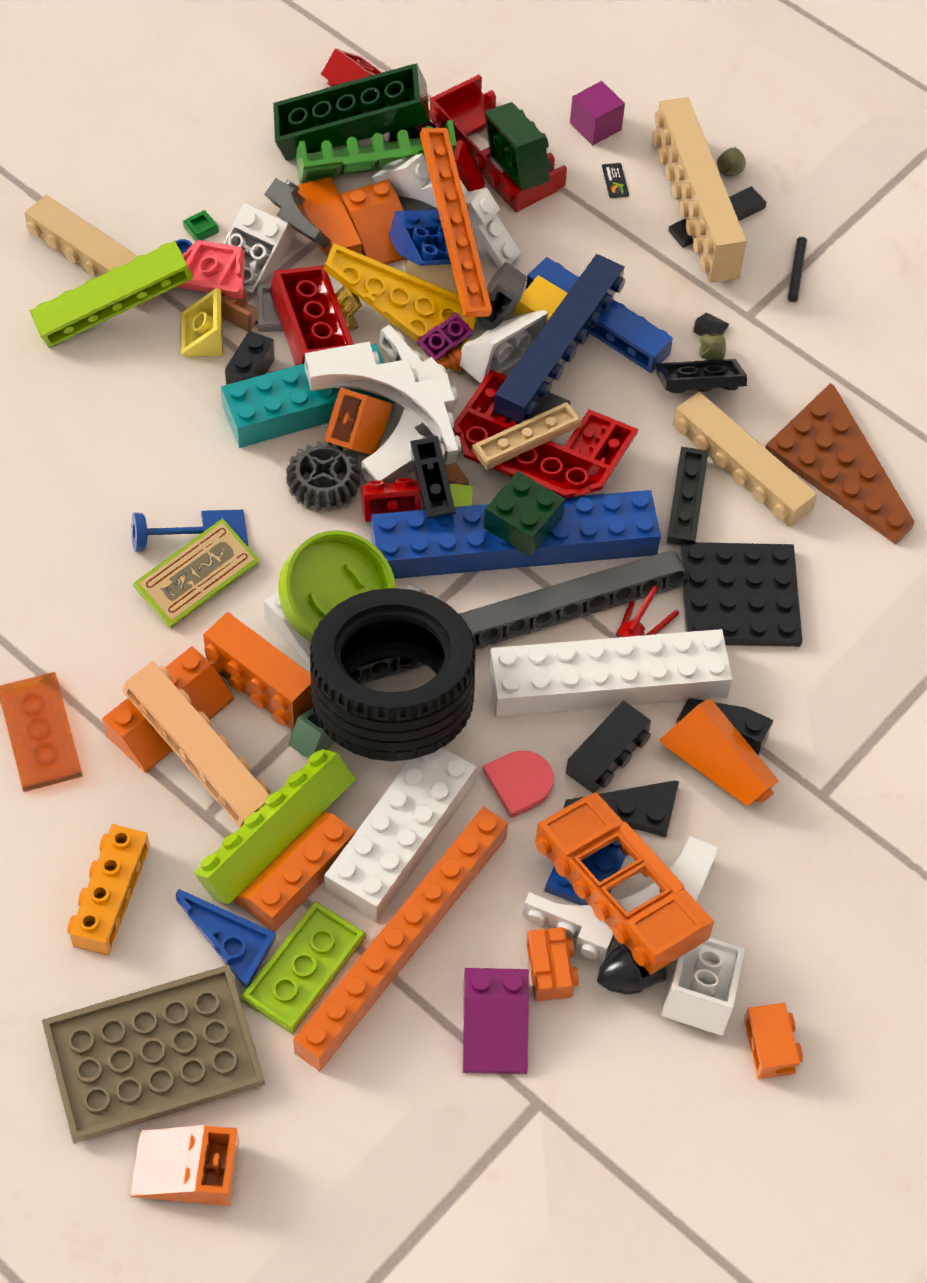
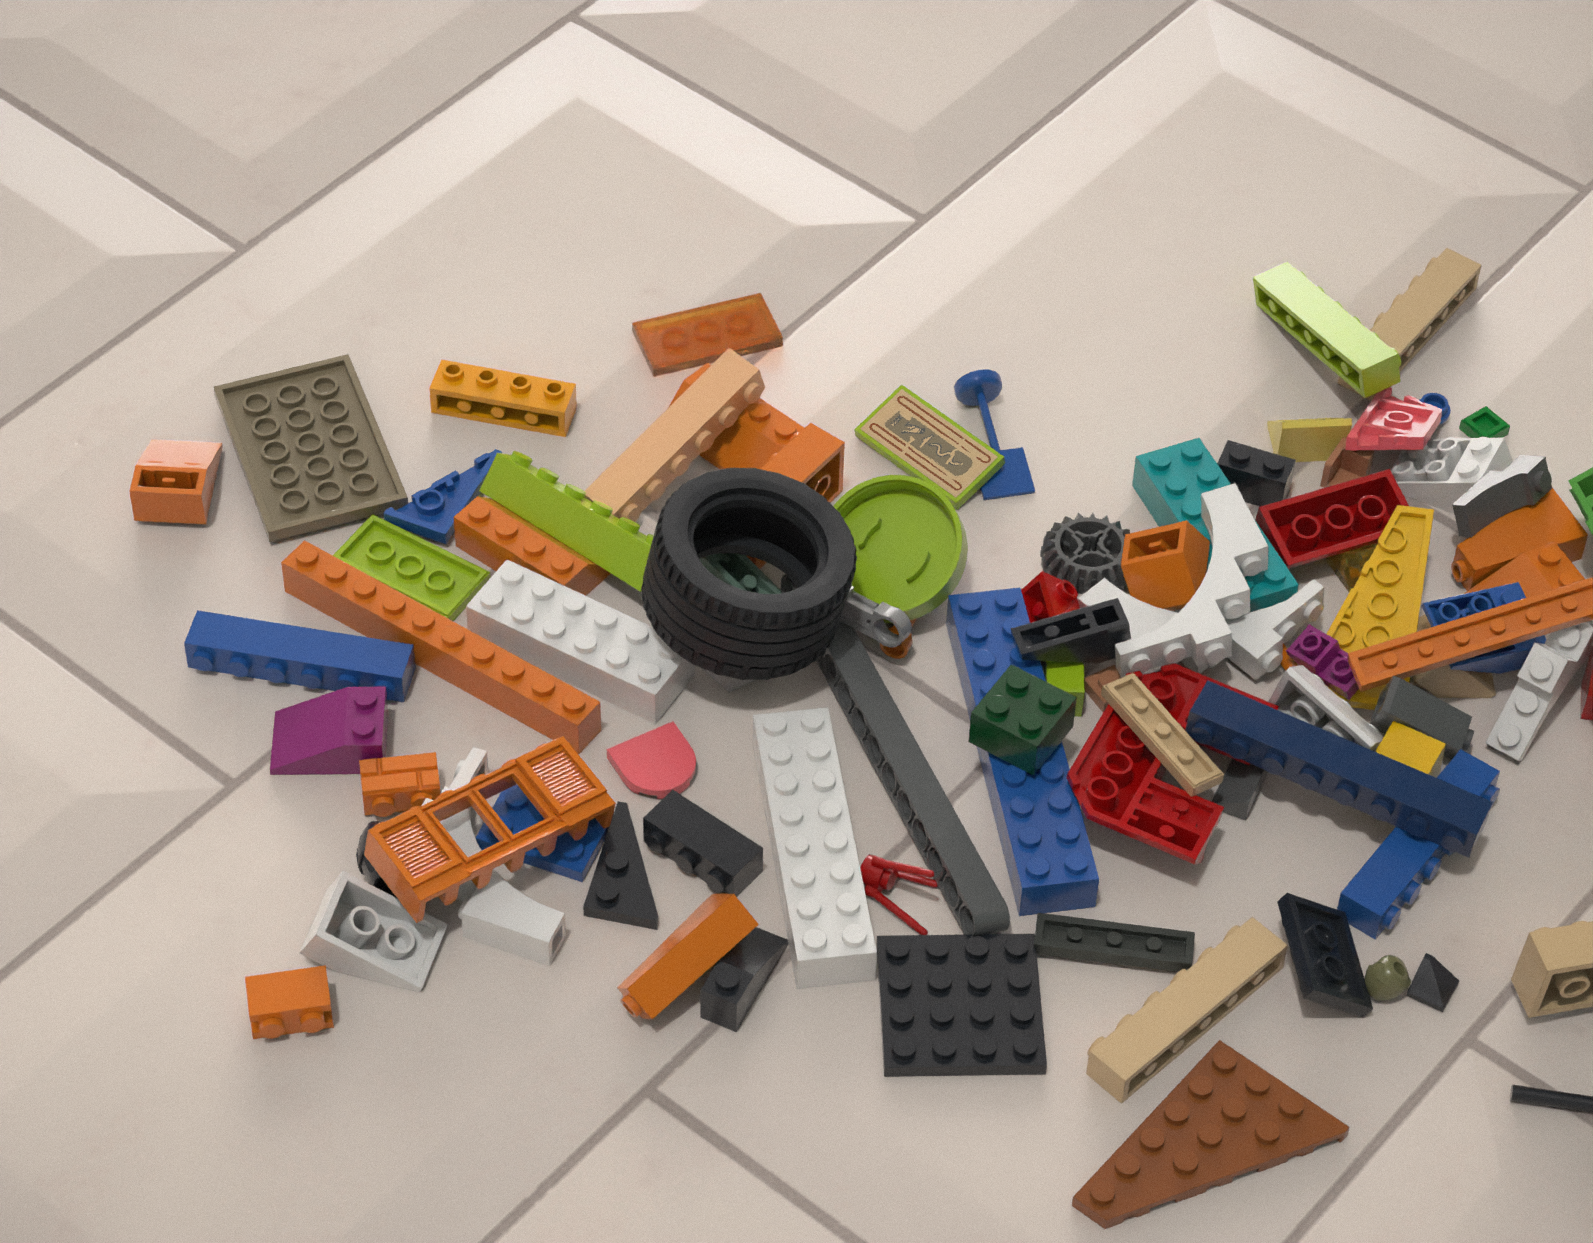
camera: 90 degrees right, 10 degrees down
(409, 1050) = (298, 655): none -> blue brick

